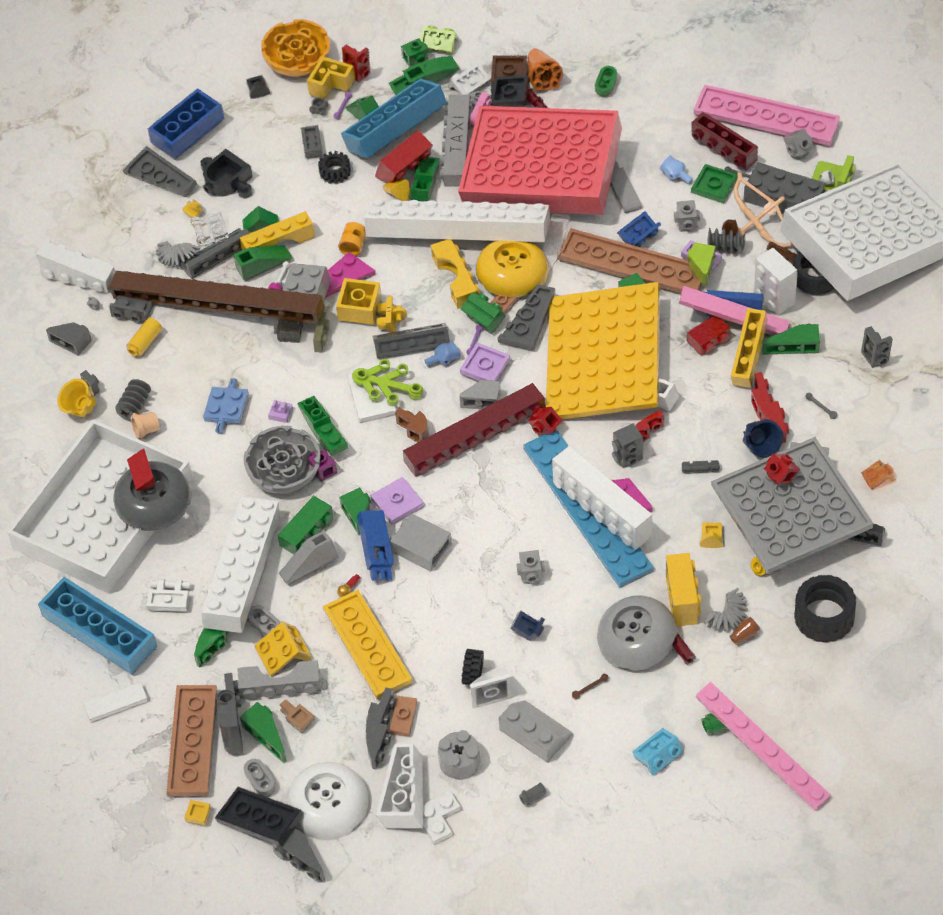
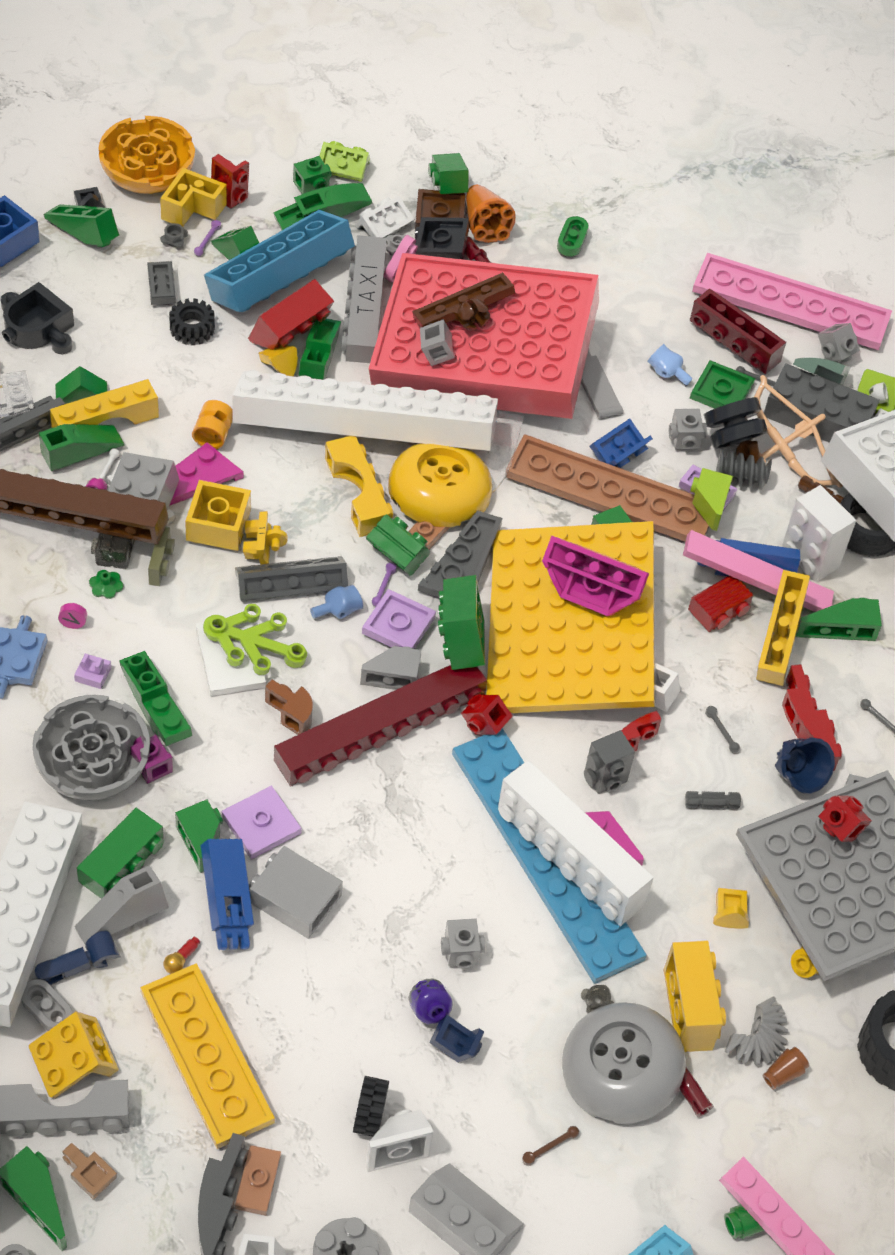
camera: 10 degrees left, 0 degrees up
(257, 103) = (85, 223): none -> green slope
(264, 376) = (72, 615): none -> dark pink tile
(285, 353) = (106, 584): none -> green plant
(294, 585) = (98, 947): none -> dark blue piece
(504, 169) = (437, 342): none -> light grey brick
(509, 603) = (430, 1001): none -> dark purple head
(514, 42) = (449, 173): none -> green brick
(523, 141) = (467, 305): none -> reddish brown plate
(526, 360) = (462, 622): none -> green brick
(613, 323) = (592, 577): none -> dark pink wedge
(619, 592) = (597, 991): none -> clear smoke plate
(701, 409) = (711, 712): none -> dark grey hinge
(719, 208) = (735, 423): none -> black wheel
(794, 165) = (825, 368): none -> sand green slope

